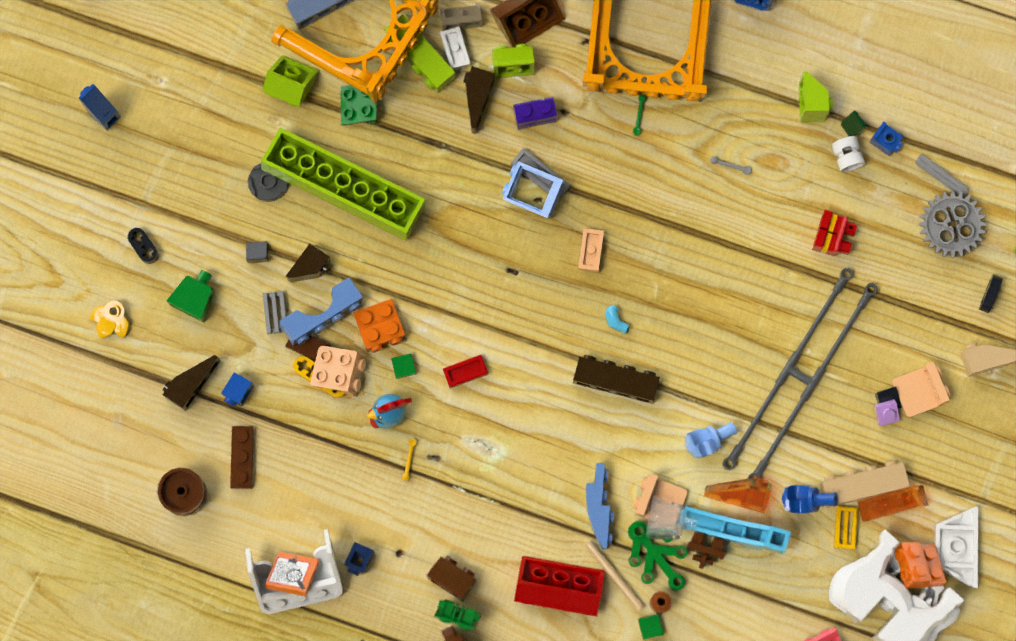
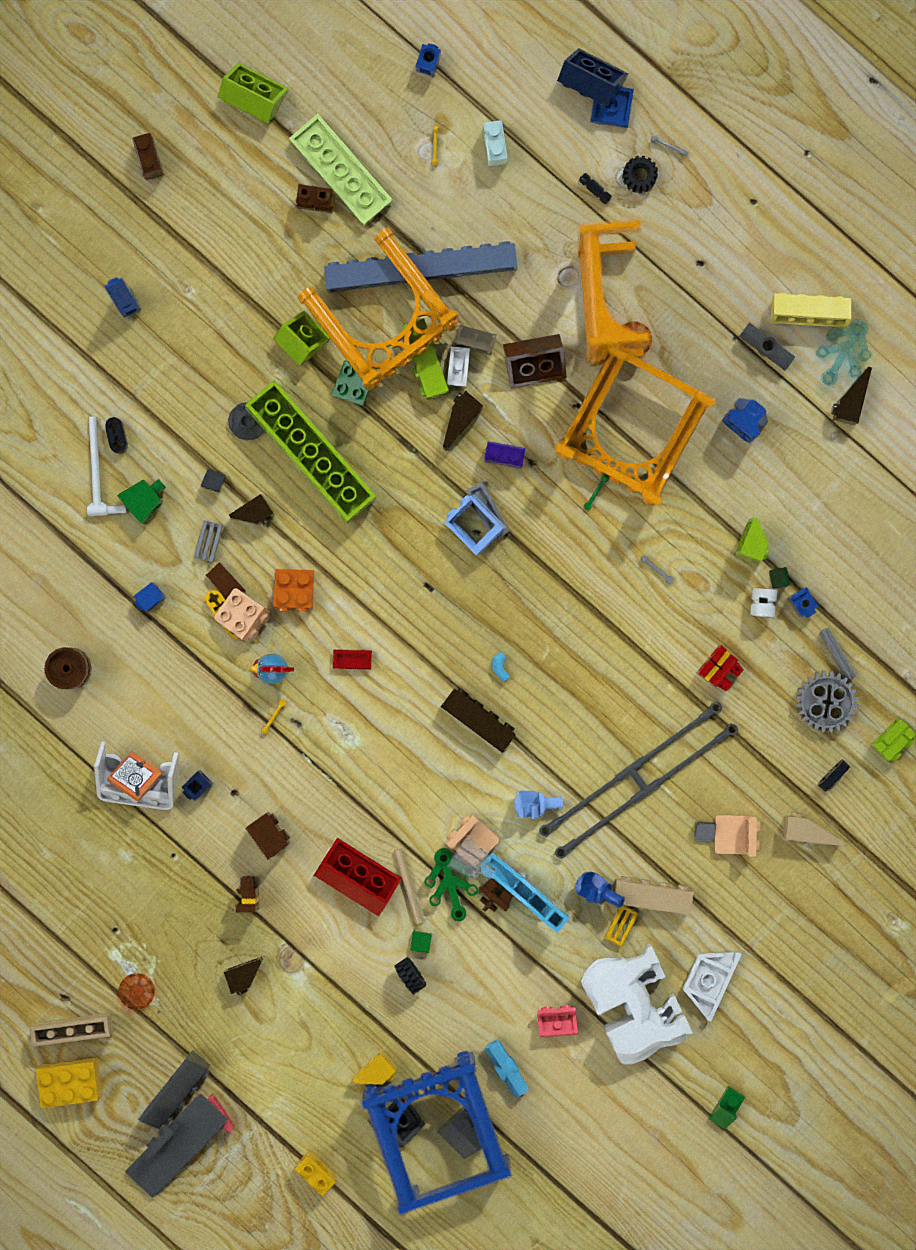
camera: 20 degrees right, 10 degrees up
(108, 322) = (61, 492): yellow plate -> none
(150, 323) = (98, 508): none -> white bar
(187, 385) = (107, 576): dark brown slope -> none
(241, 457) = (131, 657): reddish brown plate -> none
(300, 326) = (223, 564): medium blue arch -> none
(403, 366) = (300, 633): green tile -> none
(465, 618) = (260, 869): green hinge -> none
(513, 61) = (504, 399): lime slope -> none
(590, 250) = (503, 597): light nougat plate -> none
(598, 514) = (415, 829): medium blue slope -> none
(660, 609) = (436, 920): dark orange brick -> none
(745, 493) = (546, 862): clear orange slope -> none
(887, 412) = (699, 842): lavender plate -> none
(893, 503) = (671, 922): clear orange slope -> none
(919, 565) = (669, 986): orange plate -> none

